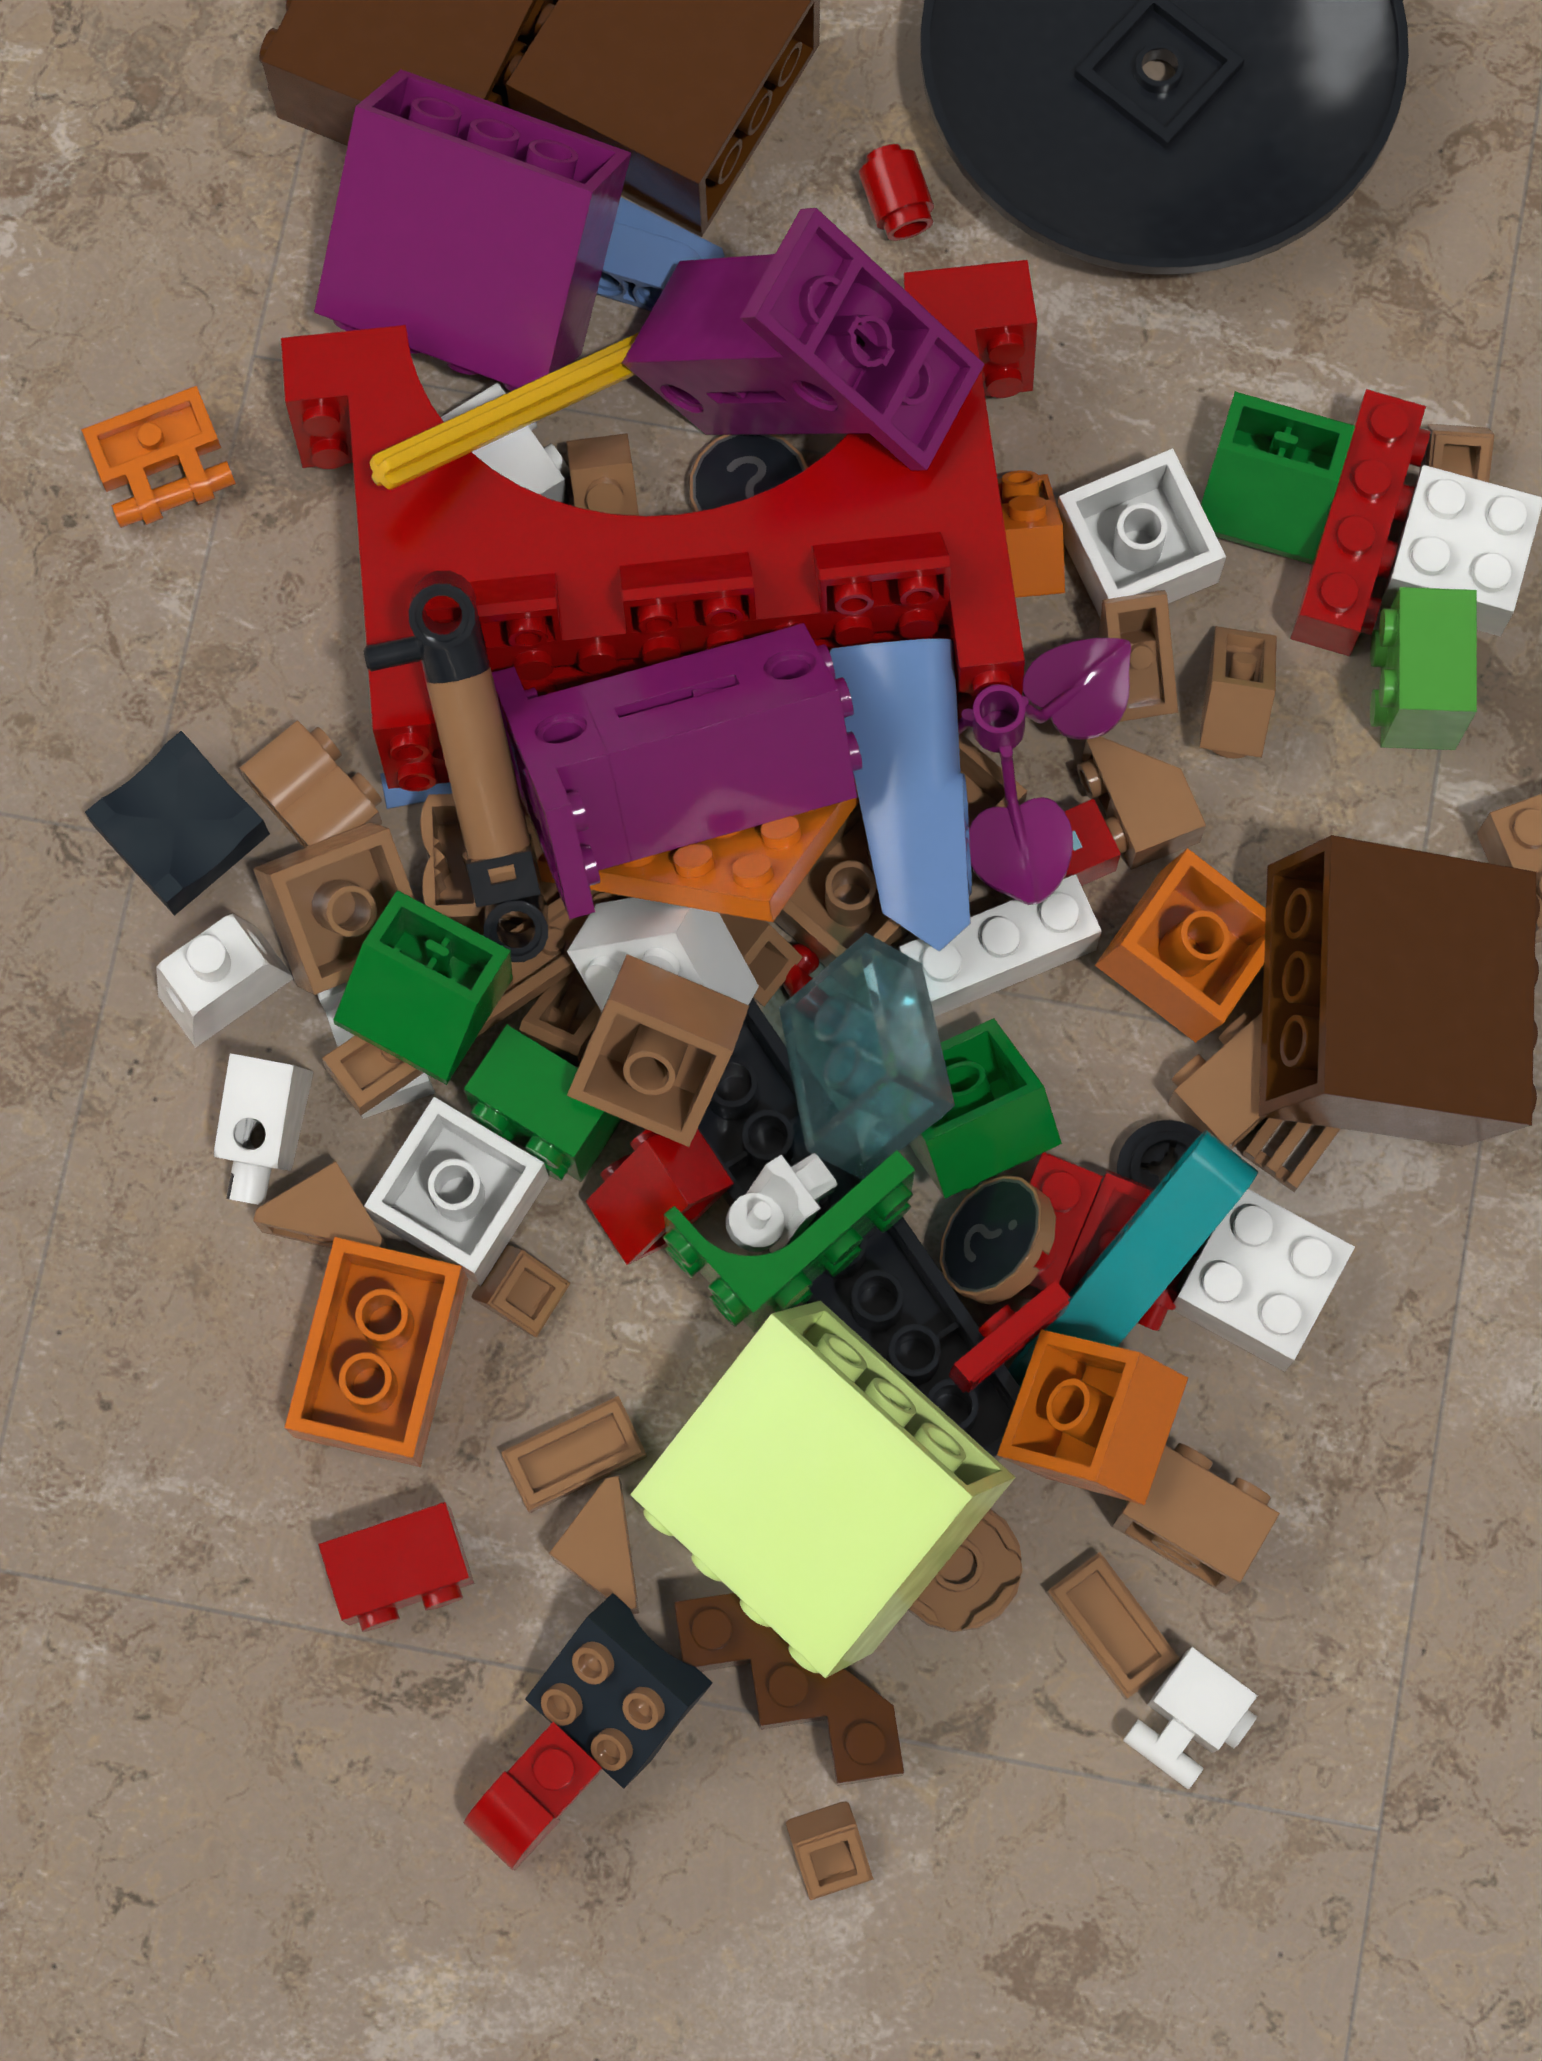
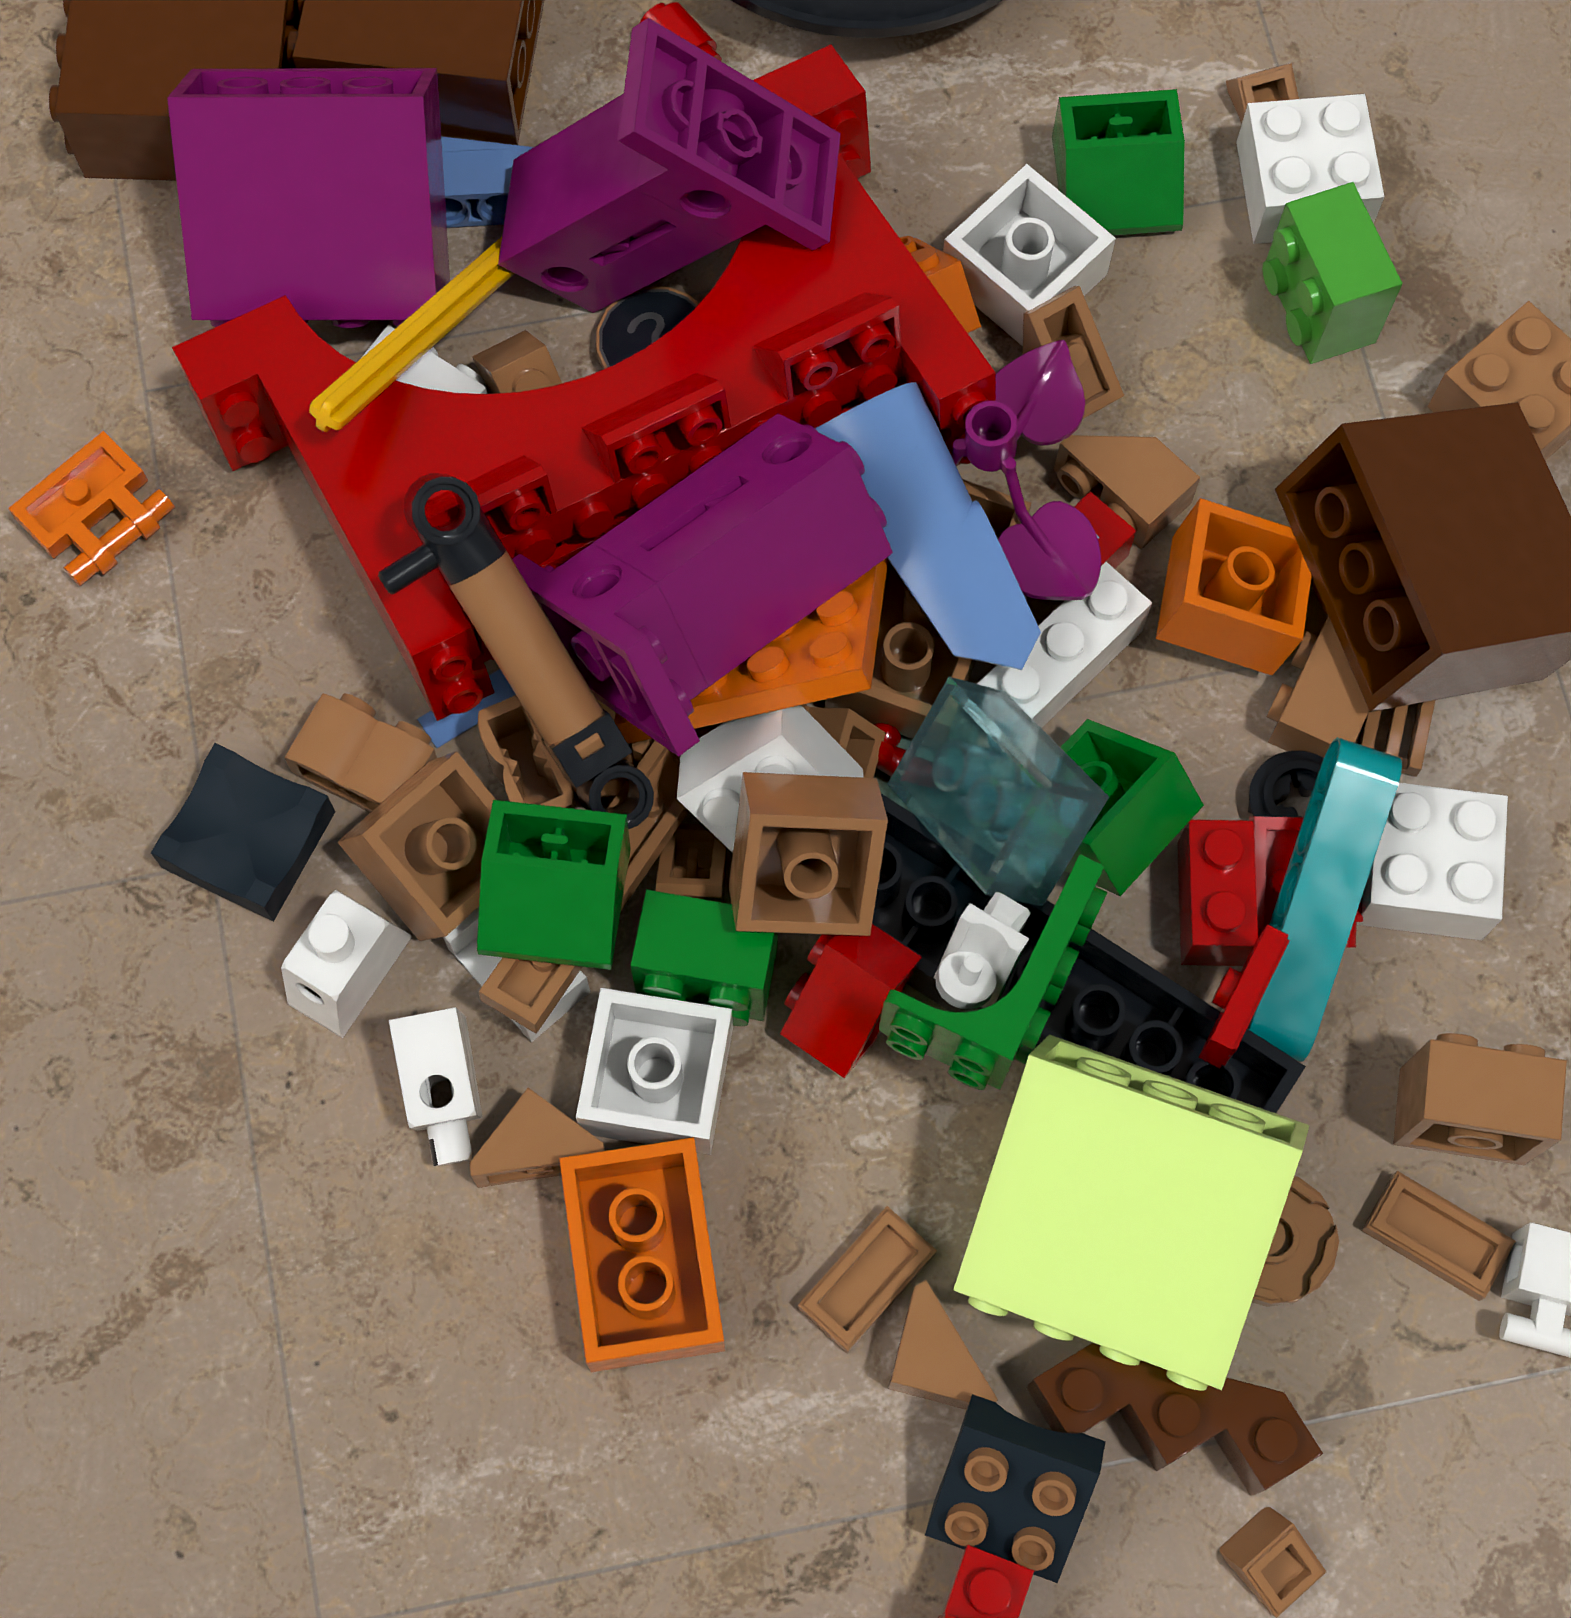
camera: 25 degrees left, 5 degrees down
(396, 1567) = (747, 1455): red brick -> none
(521, 1290) = (750, 1143): medium nougat slope -> none
(997, 1239) = (1187, 914): black tile -> none
(1093, 1416) = (1358, 1037): orange brick -> none
(1238, 693) = (1172, 359): medium nougat slope -> none
(1356, 532) = (1219, 200): red brick -> none

